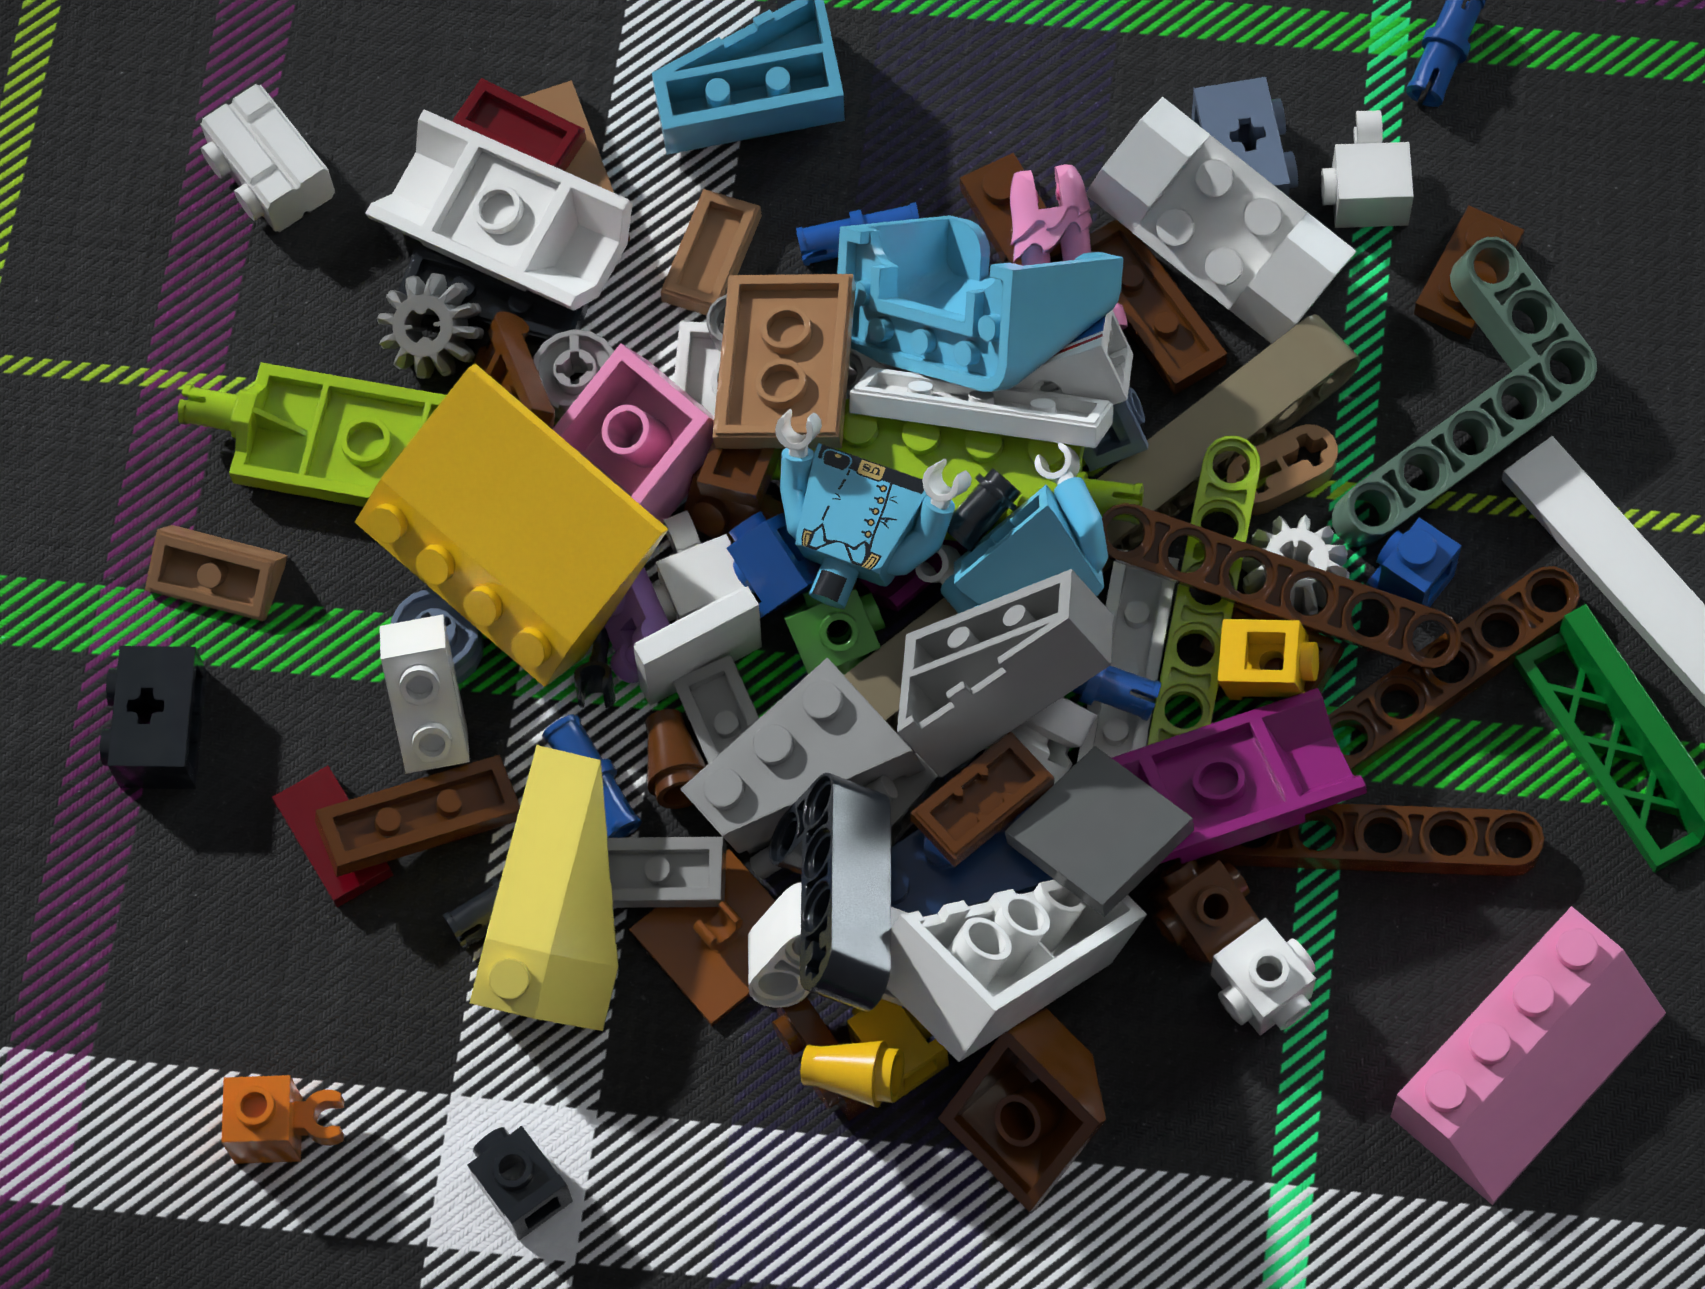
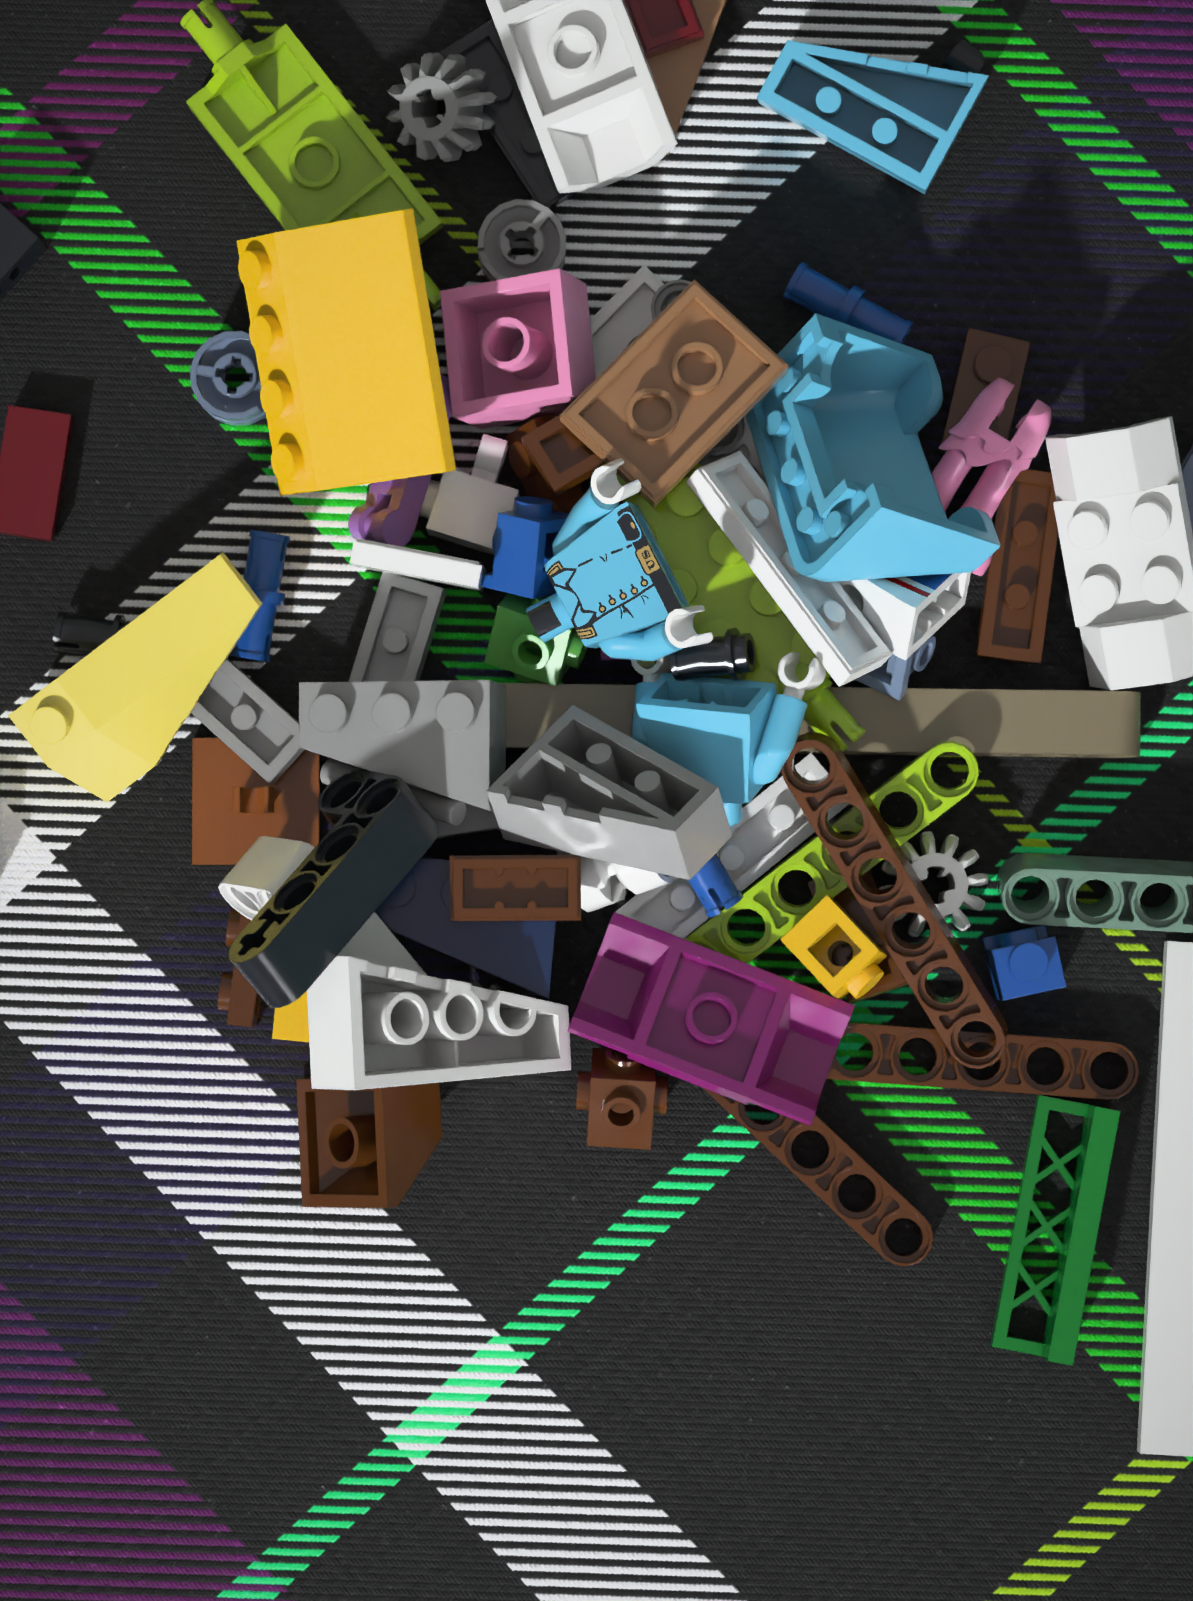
camera: 30 degrees right, 20 degrees up
(214, 572) = (117, 170): medium nougat slope -> none
(417, 815) = (101, 518): reddish brown plate -> none
(424, 694) = (178, 429): white brick -> none
(511, 364) = (461, 215): reddish brown plate -> none
(596, 674) = (333, 512): black hand -> none
(671, 758) = (331, 637): reddish brown cone -> none
(710, 251) = (720, 223): medium nougat tile -> none
(856, 1070) = (244, 1014): yellow cone -> none
(1099, 831) = (581, 987): dark grey tile -> none
(1264, 978) = (621, 1166): white brick -> none
(1296, 479) = (1005, 775): medium nougat beam -> none
(1529, 1056) = (763, 1408): bright pink slope -> none

